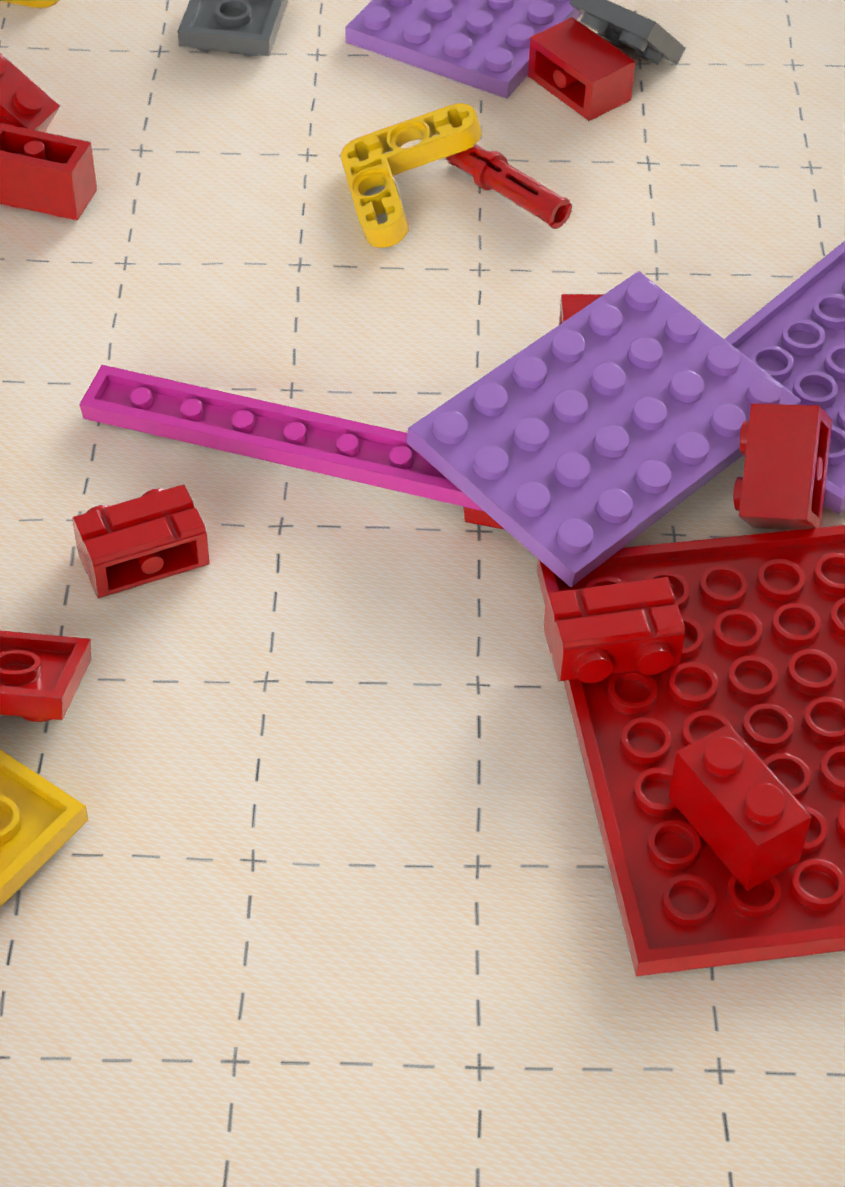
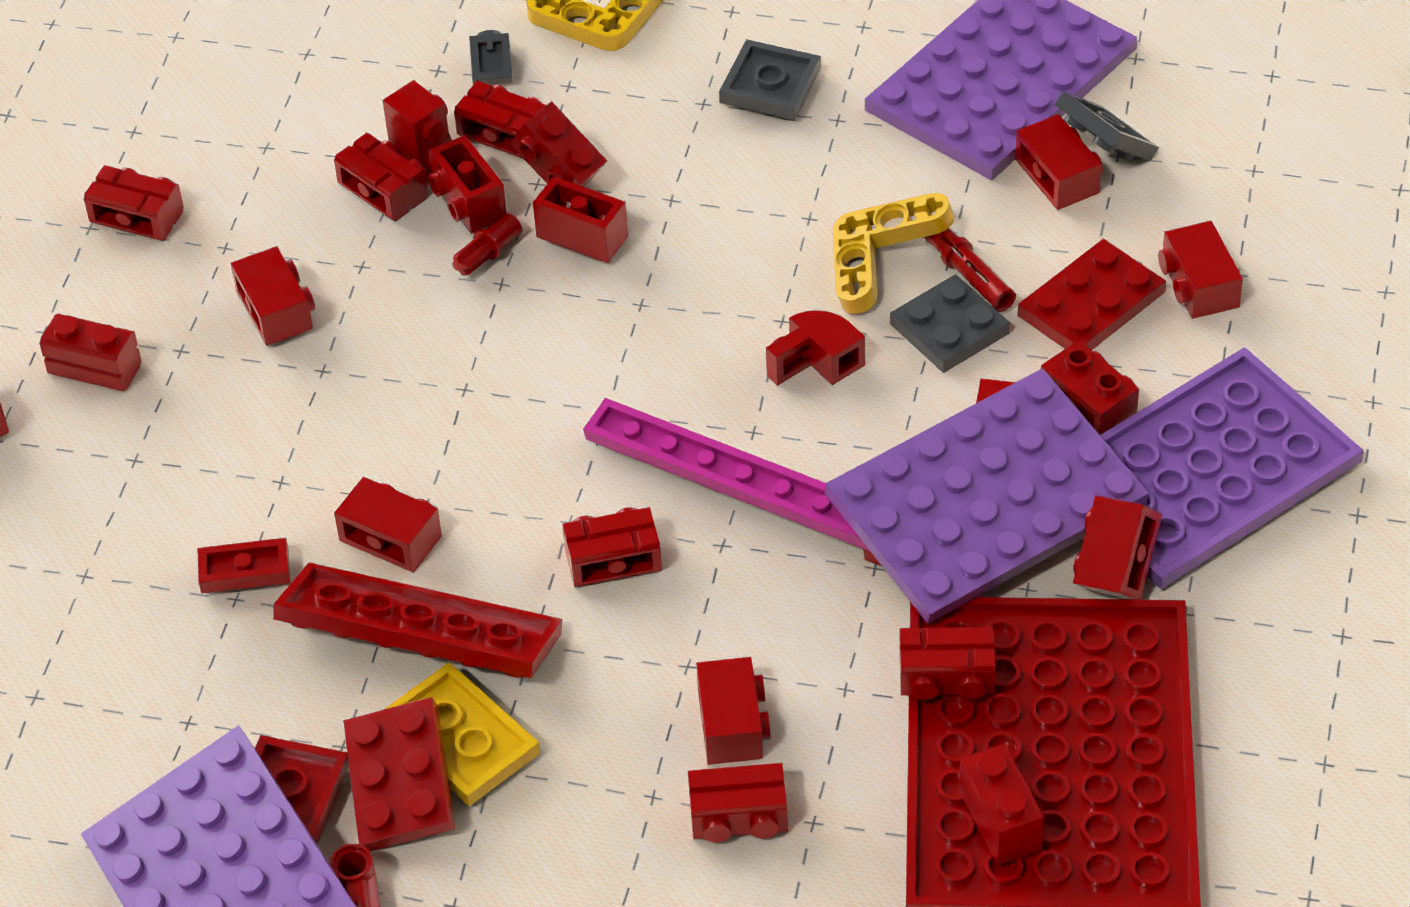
camera: 15 degrees right, 0 degrees up
(340, 729) = (731, 711): none -> red brick
(355, 278) = (818, 341): none -> red brick
(374, 851) = (738, 802): none -> red brick
(500, 246) = (949, 323): none -> dark grey plate
(656, 205) = (1092, 297): none -> red plate
(699, 287) = (1093, 386): none -> red brick
(775, 161) = (1200, 269): none -> red brick

